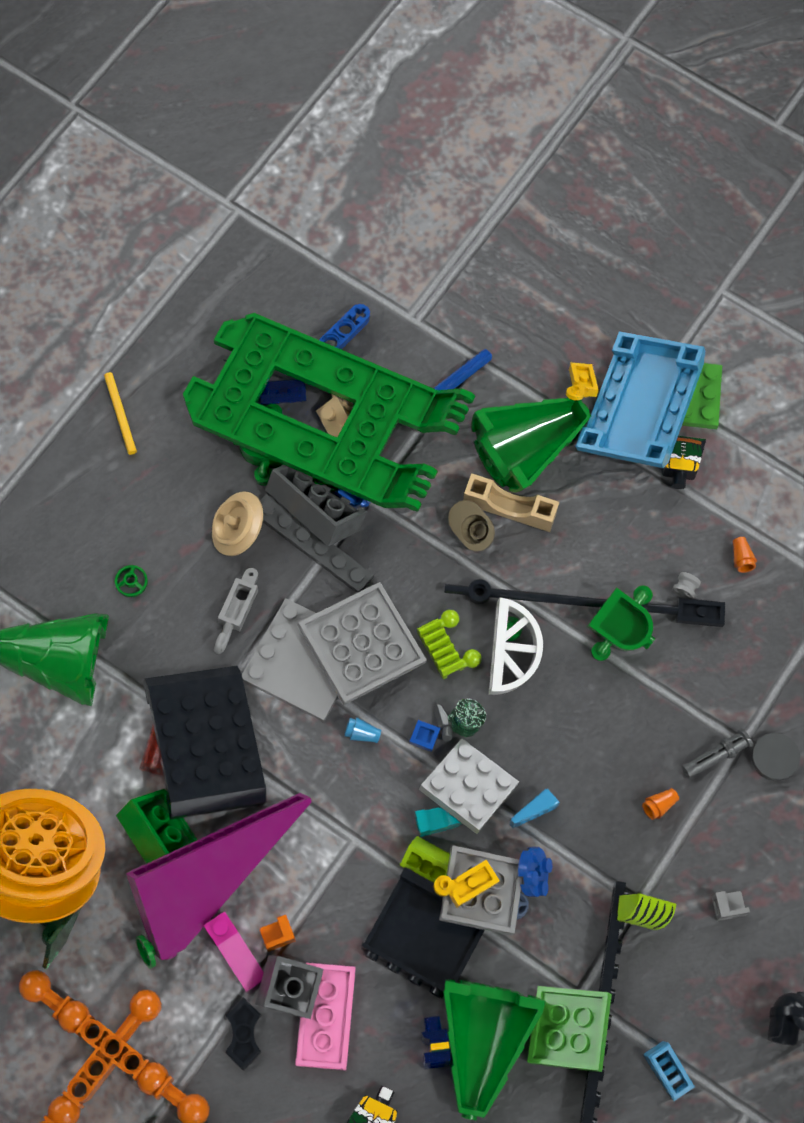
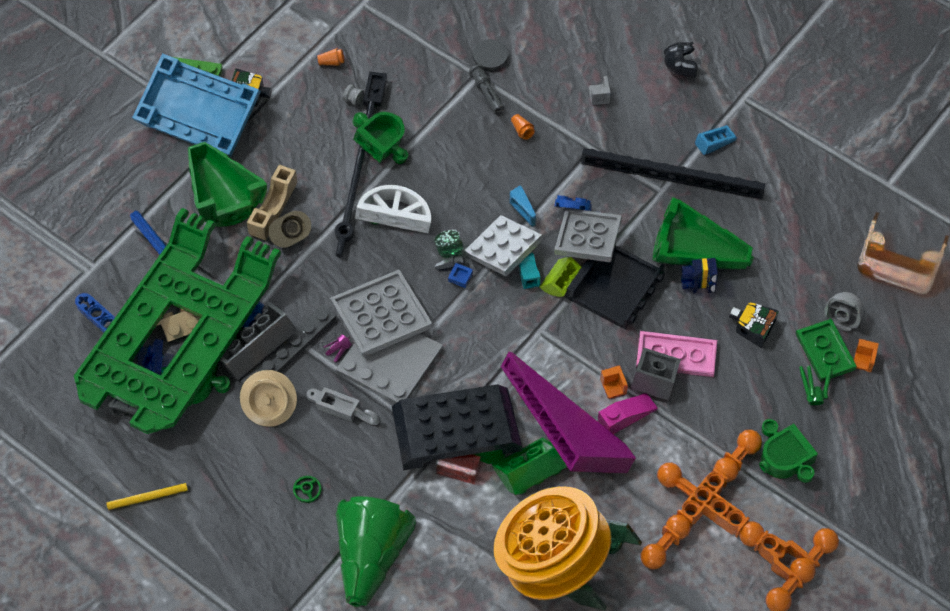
camera: 85 degrees left, 10 degrees down
(146, 951) = (626, 471): green piece -> none
(243, 1047) = (680, 410): black tile -> none
(320, 600) = (342, 342): none -> flat silver piece
(362, 731) = (453, 319): dark azure cone -> none
(440, 647) = (386, 262): lime gear -> none
(467, 884) = (586, 236): yellow hinge -> none
(571, 1029) = (690, 183): bright green plate -> none
(583, 381) = (172, 145): yellow hinge -> none
(645, 911) = (604, 138): lime brick -> none

